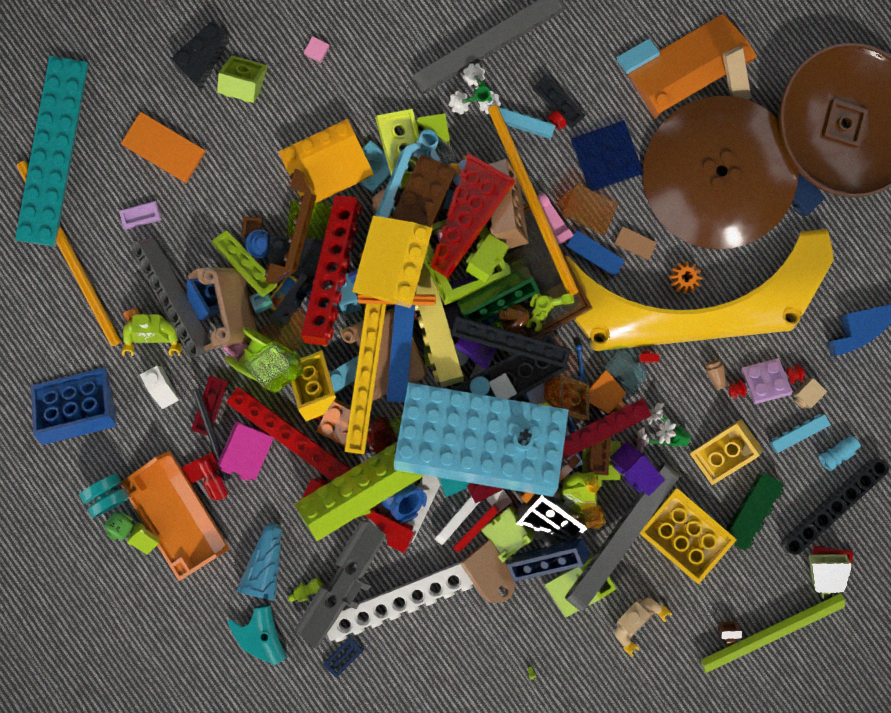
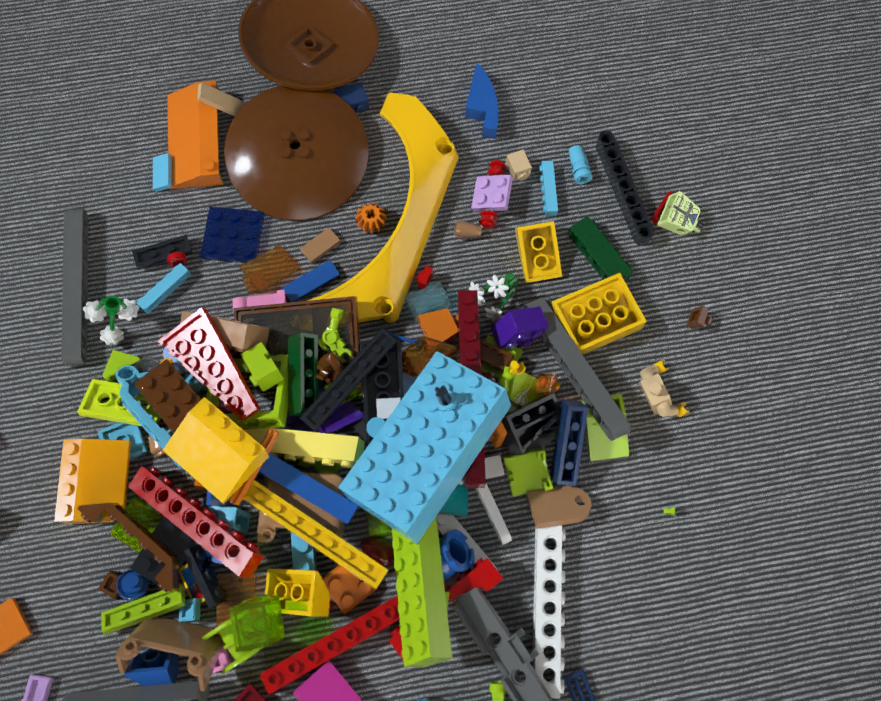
camera: 70 degrees left, 15 degrees down
(476, 528) = (510, 499): red tile -> none
(533, 200) = (233, 306): light orange axle -> none
(773, 633) = (714, 284): lime tile -> none

